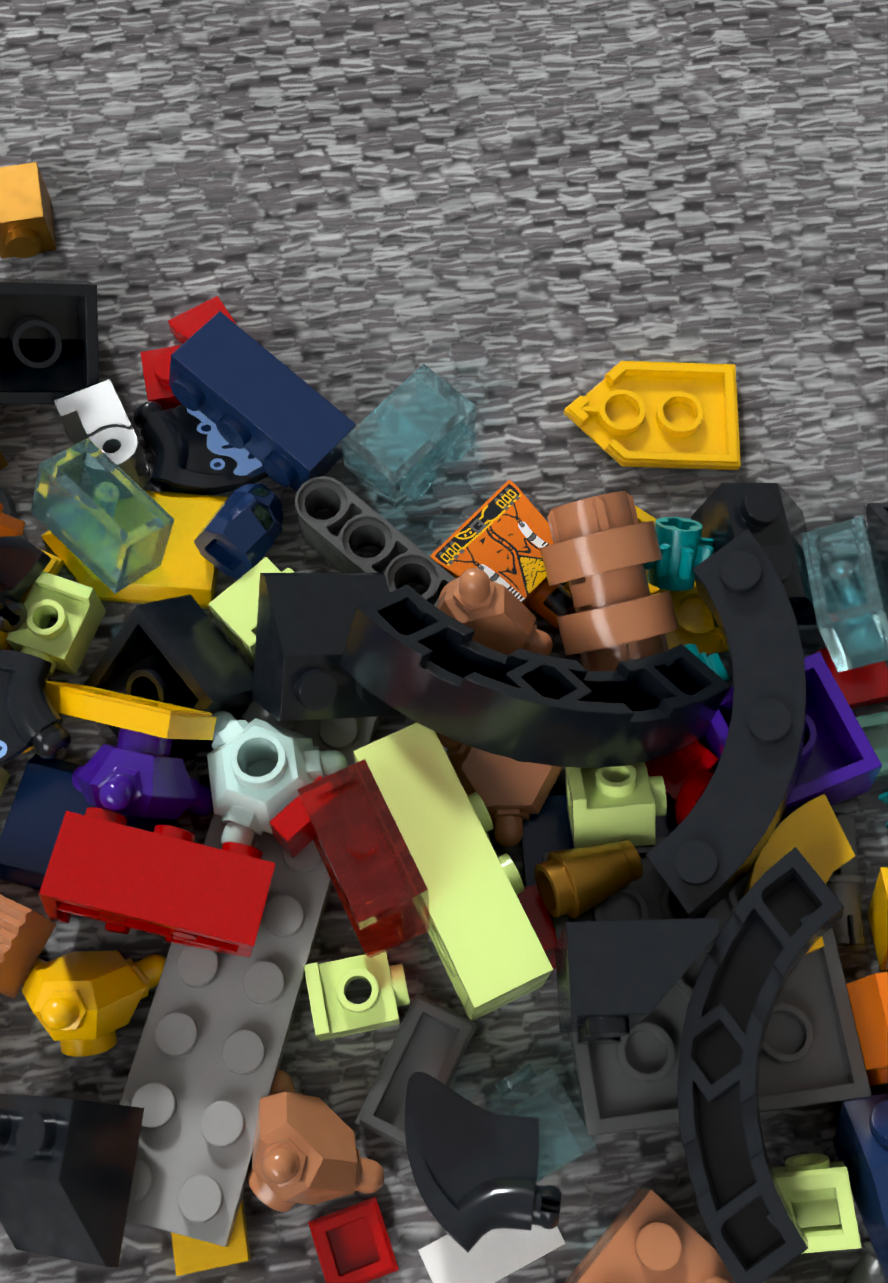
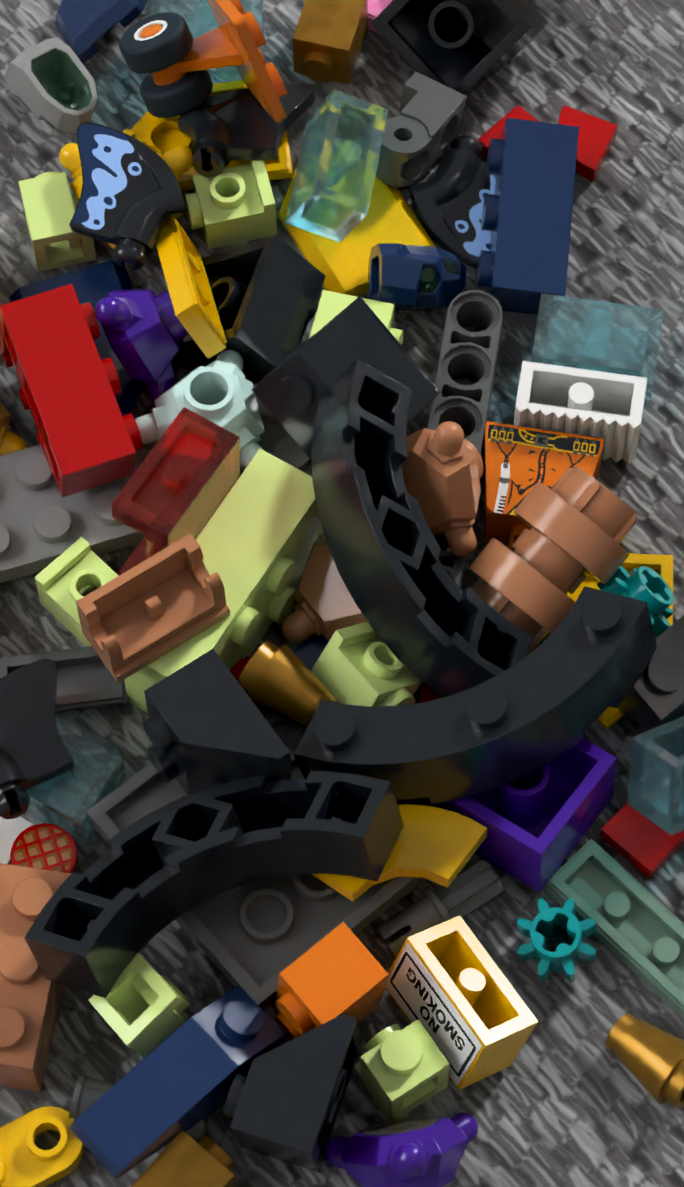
camera: 60 degrees right, 5 degrees down
(463, 478) = (583, 405): none -> white brick
(470, 951) = (152, 608): none -> nougat hinge
(588, 1198) = (45, 848): none -> tile

